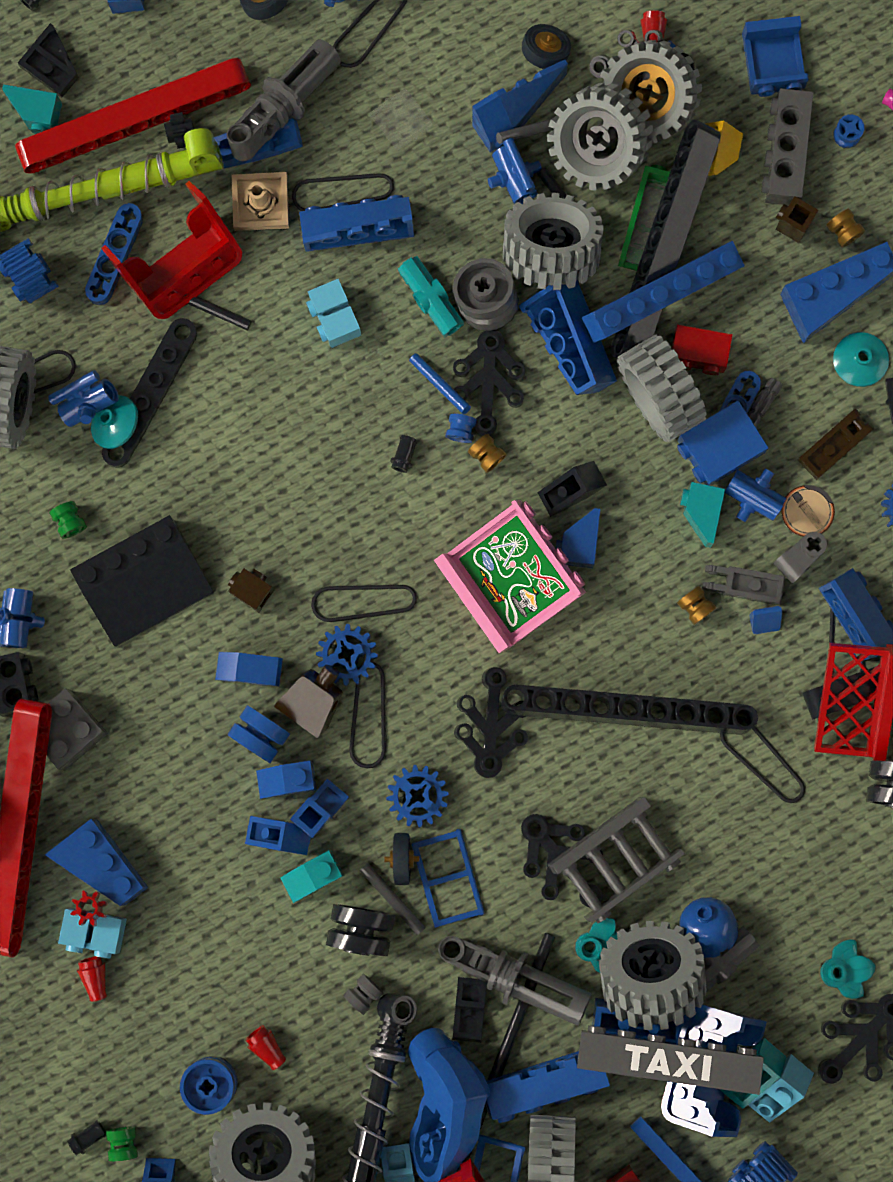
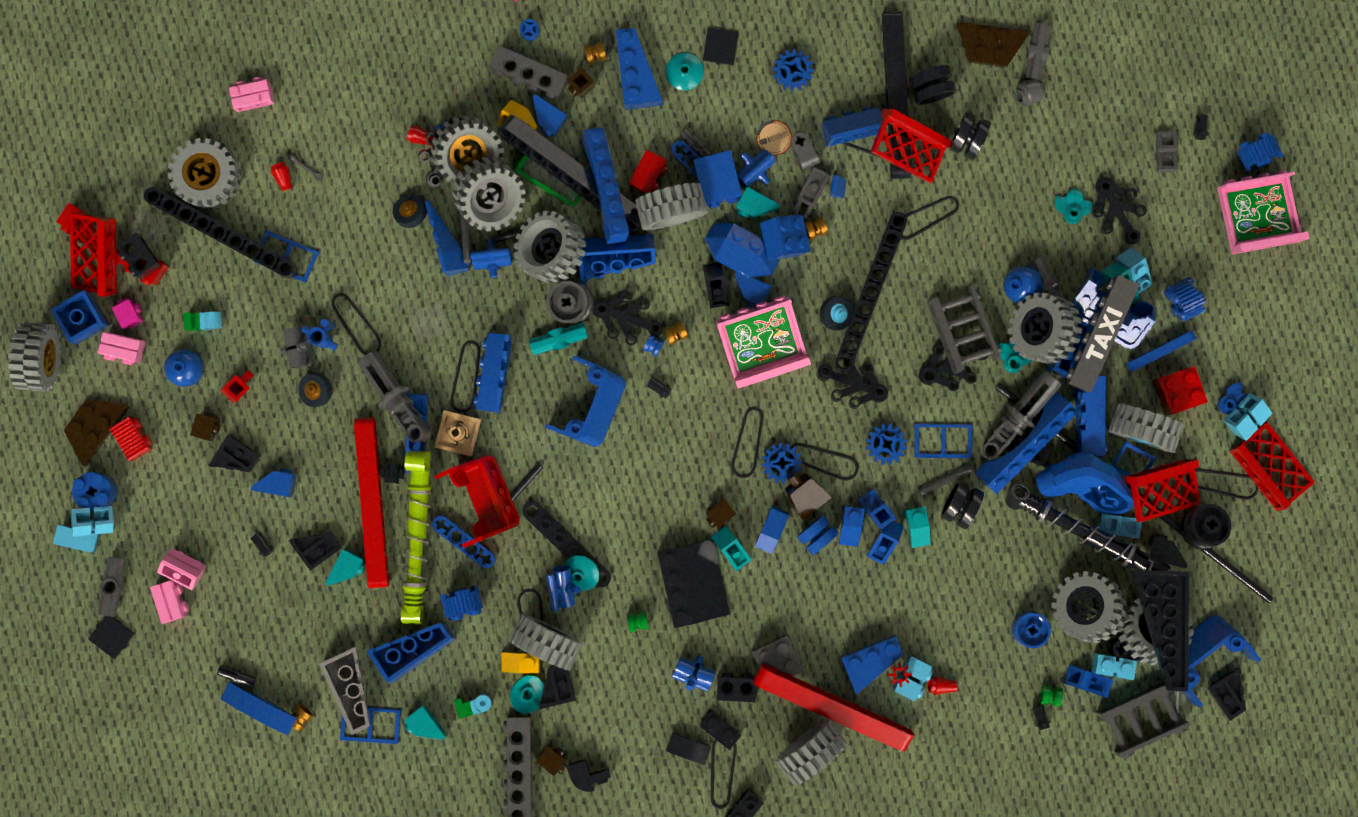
camera: 80 degrees left, 5 degrees up
(206, 618) = (731, 548): none -> teal slope
(265, 1046) = (1016, 587): red cone -> none
(334, 313) = (541, 407): medium azure piece -> none
(351, 382) = (602, 409): none -> blue windscreen
(358, 998) = (1003, 519): dark grey wheel -> none
(401, 859) = (924, 465): black wheel -> none
(440, 384) = (619, 350): blue bar -> none
(527, 1029) = (999, 472): none -> blue arch
(584, 668) = (836, 313): none -> black wheel
(631, 510) = (739, 250): none -> blue wedge
(669, 563) = (785, 237): none -> blue brick
(734, 191) = (548, 117): none -> blue slope
(774, 55) = (463, 62): blue panel -> none
(835, 445) = (737, 106): dark brown plate -> none

